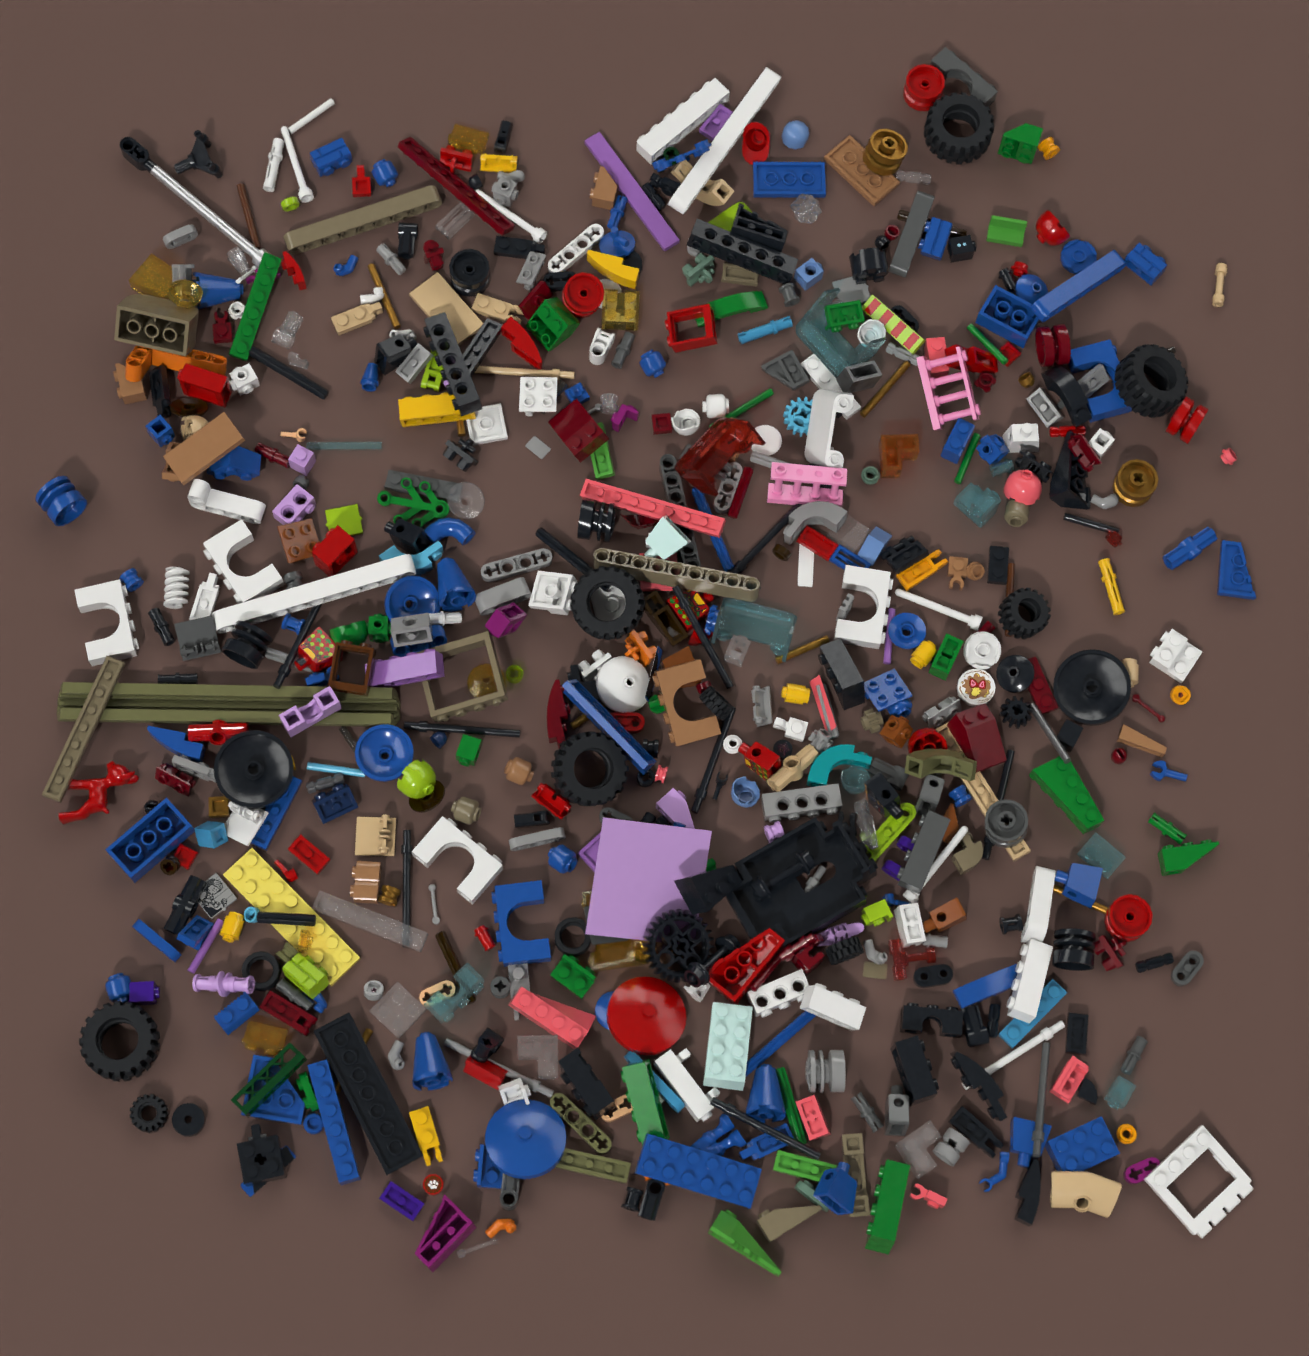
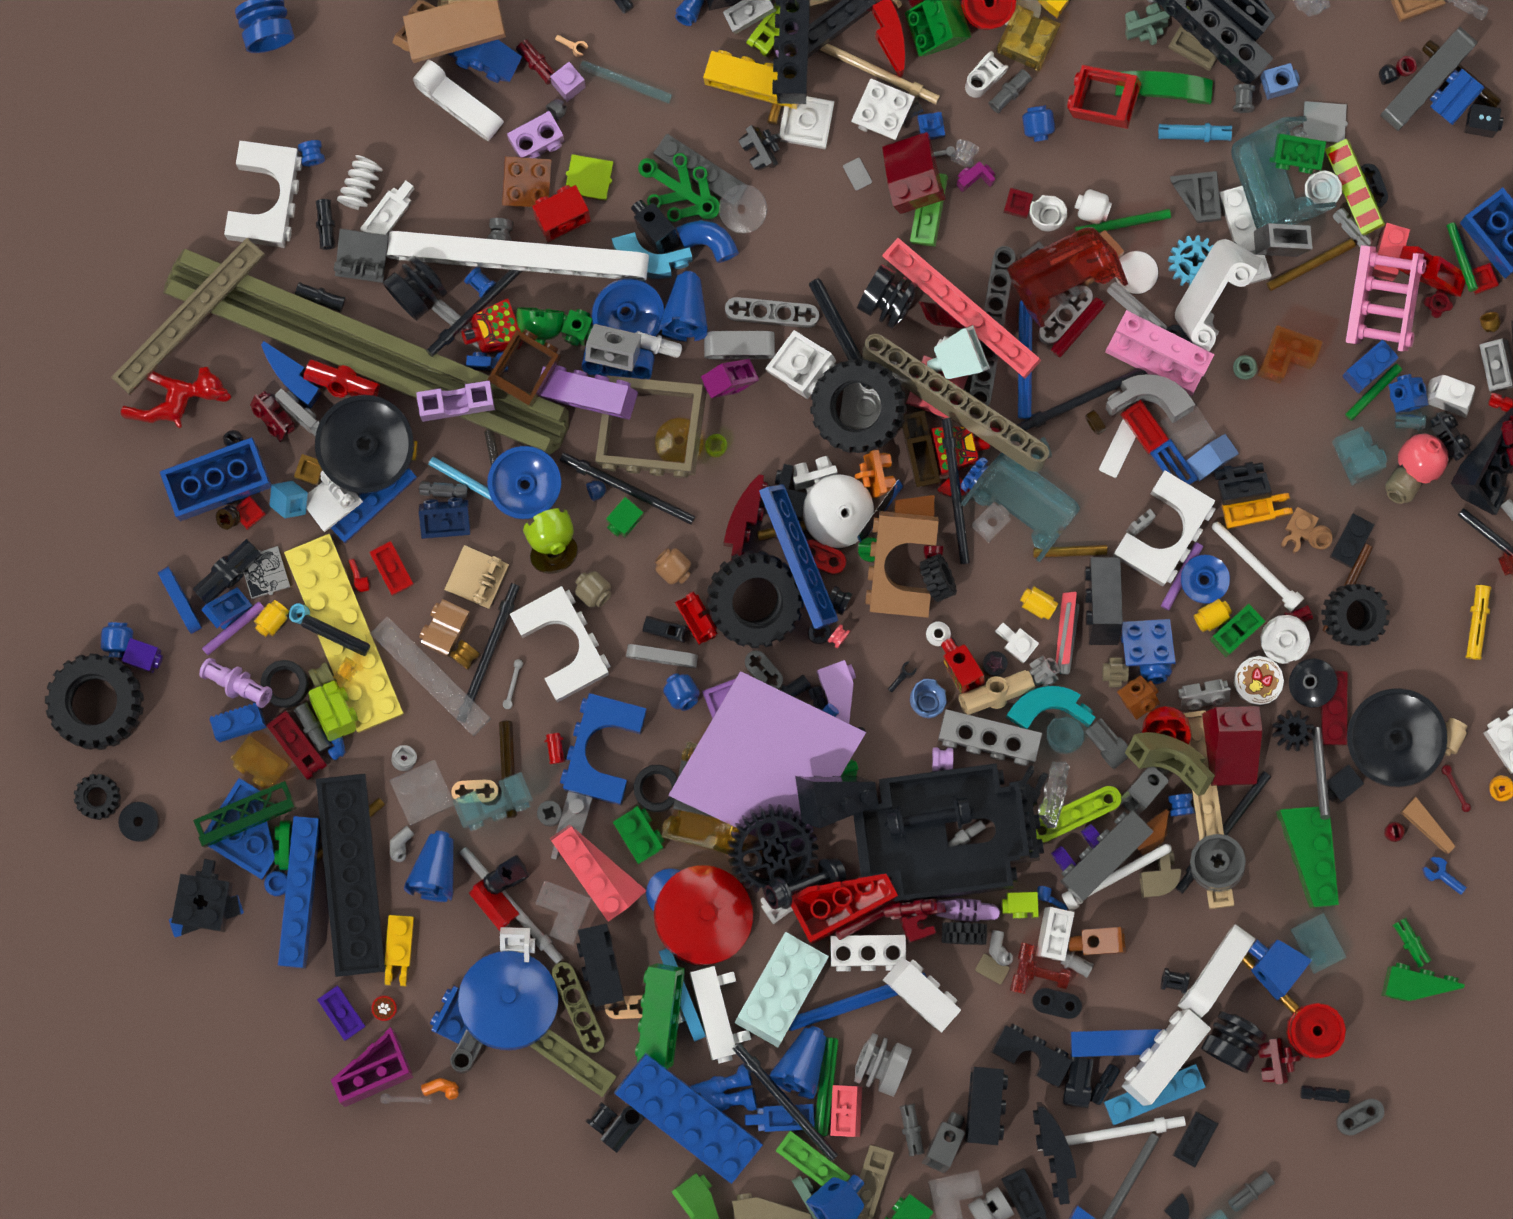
camera: 25 degrees right, 10 degrees up
(221, 549) = (430, 156): white arch -> none
(701, 792) = (876, 677): black bar -> none
(762, 710) = (990, 608): light grey hinge -> none
(869, 265) = (1357, 100): black brick -> none
(883, 796) = (1087, 771): black torso -> none
(1069, 1079) = (1163, 1188): coral hinge -> none

